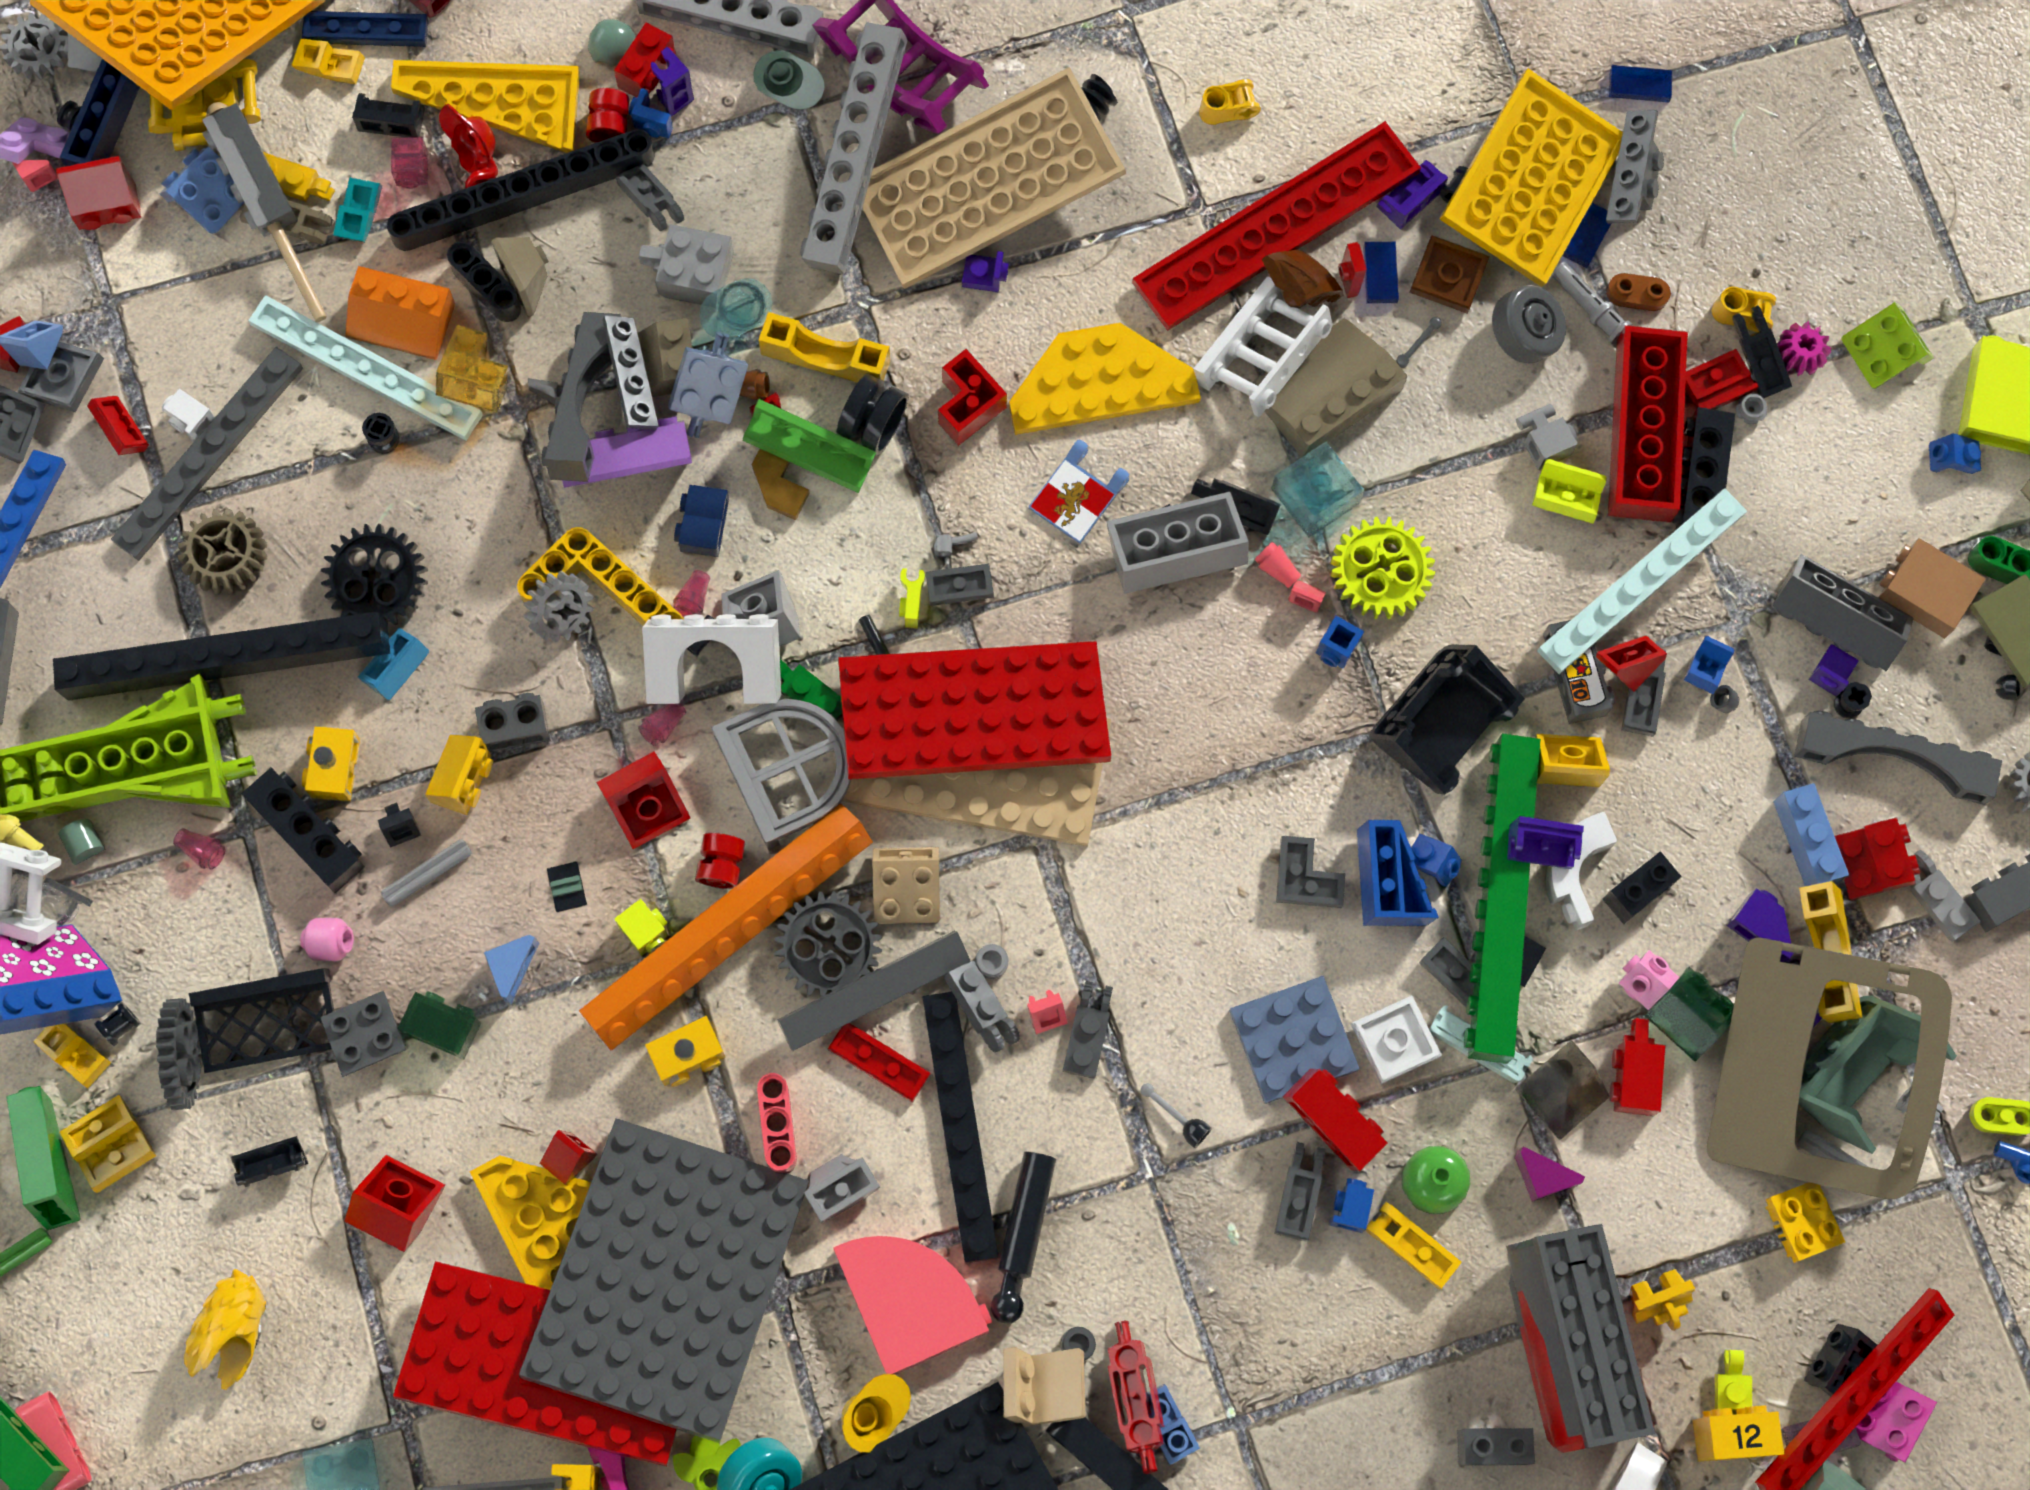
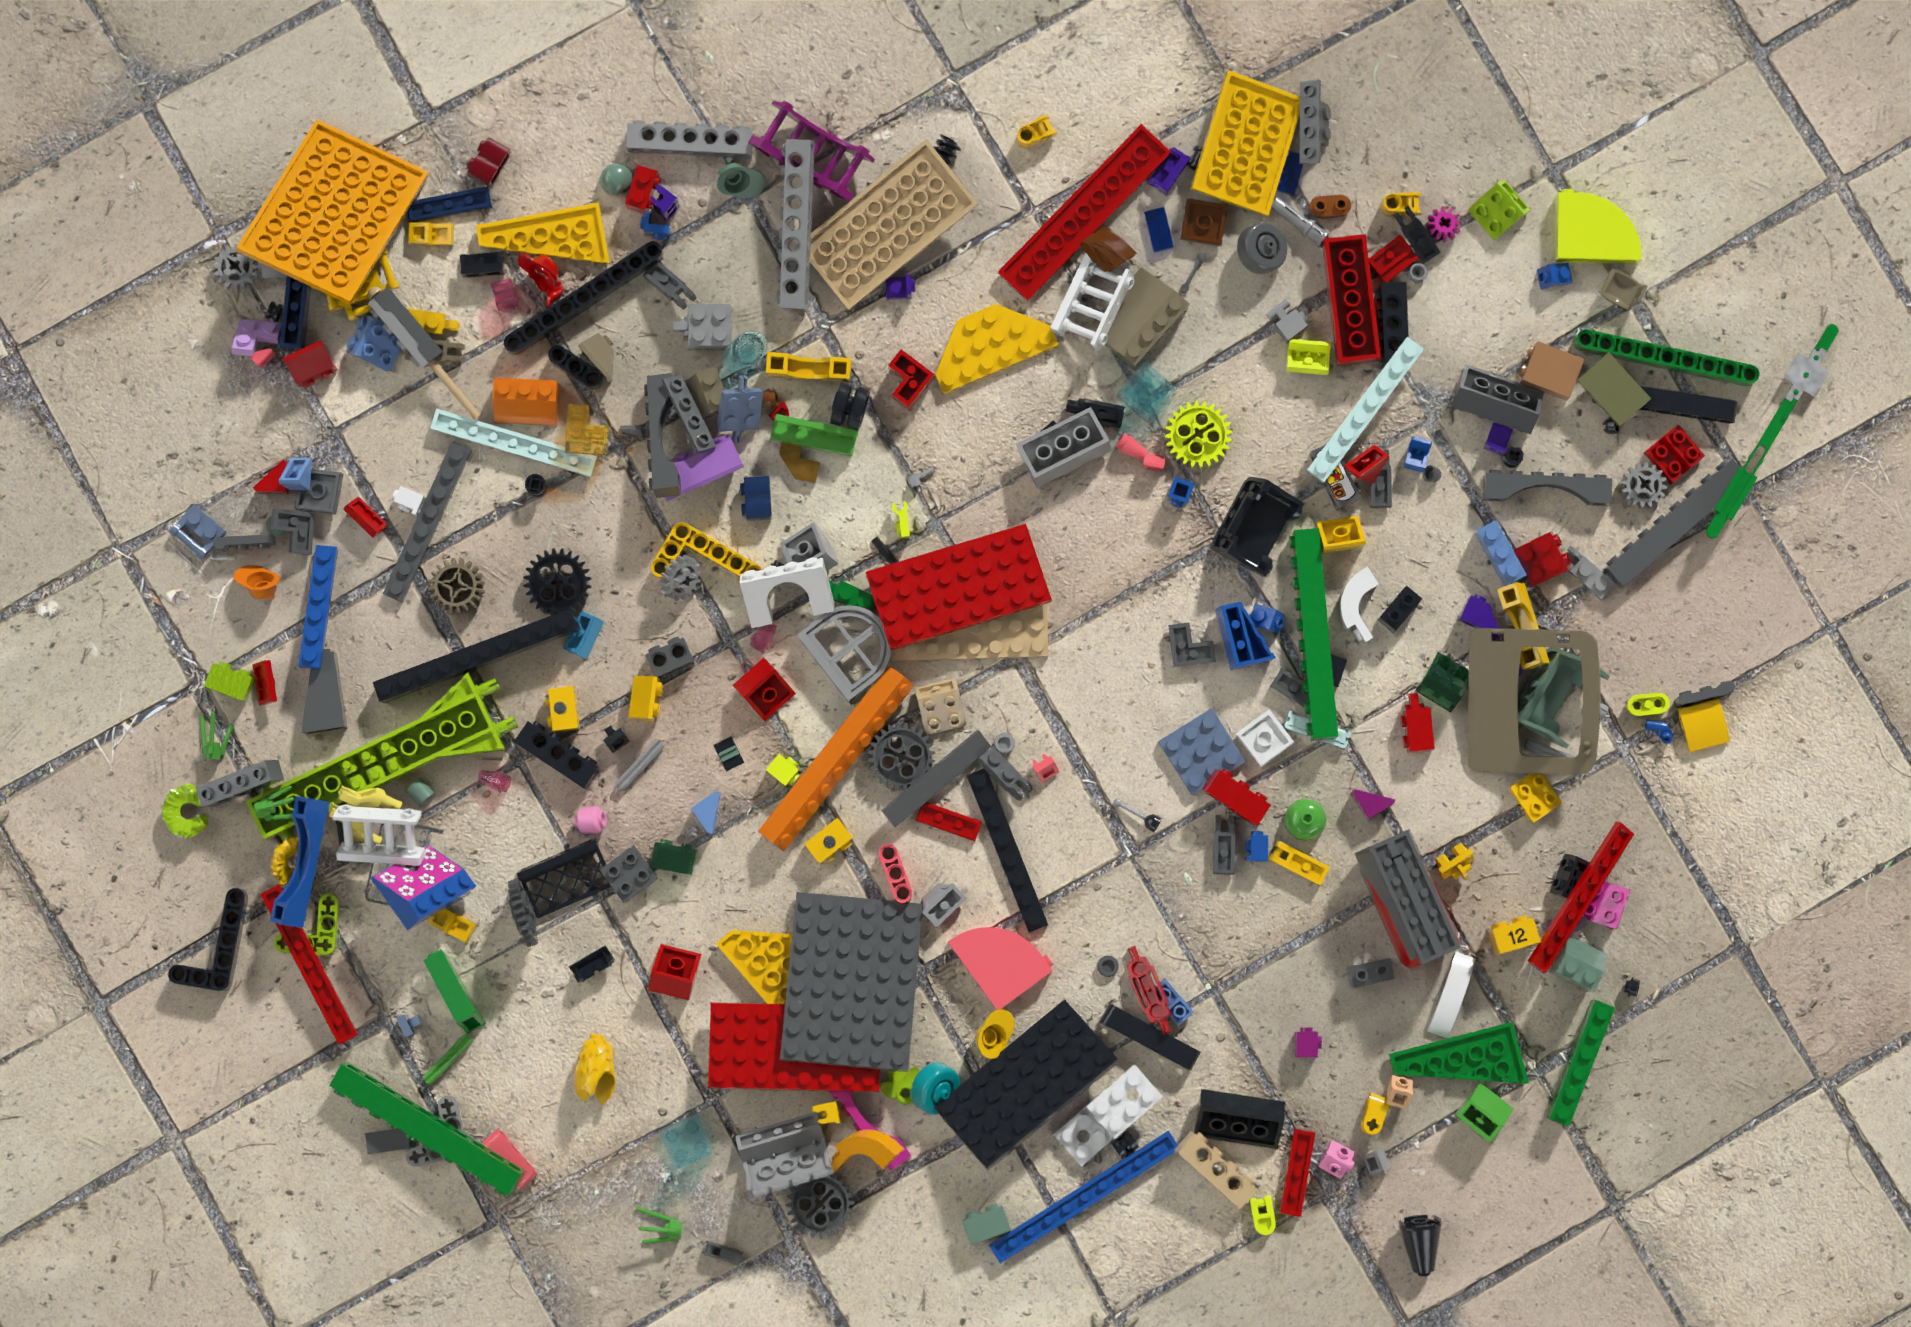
camera: 10 degrees left, 10 degrees up
(107, 1144) = (490, 974): yellow slope -> none
(117, 1024) = (475, 900): black bush -> none
(358, 210) = (479, 335): teal slope -> none
(566, 1156) = (773, 922): red slope -> none
(607, 114) = (627, 231): red wheel -> none
(692, 595) = (762, 549): clear pink cone -> none
(720, 856) = (821, 718): red wheel -> none
(959, 584) = (930, 504): dark grey plate -> none
(1022, 1234) = (1060, 907): black piece -> none
(1043, 1386) = (1092, 996): tan bracket -> none
(1075, 498) = (991, 429): flag -> none
(1087, 1034) = (1073, 776): dark grey hinge -> none
(1352, 269) = (1139, 236): red plate -> none
(1544, 842) = (1332, 597): dark purple hinge -> none
(1564, 1090) = (1373, 748): clear smoke slope -> none
(1640, 83) = (1306, 56): clear blue tile -> none
(1647, 979) = (1413, 667): bright pink brick -> none
(1733, 1388) = (1507, 907): neon yellow plate -> none

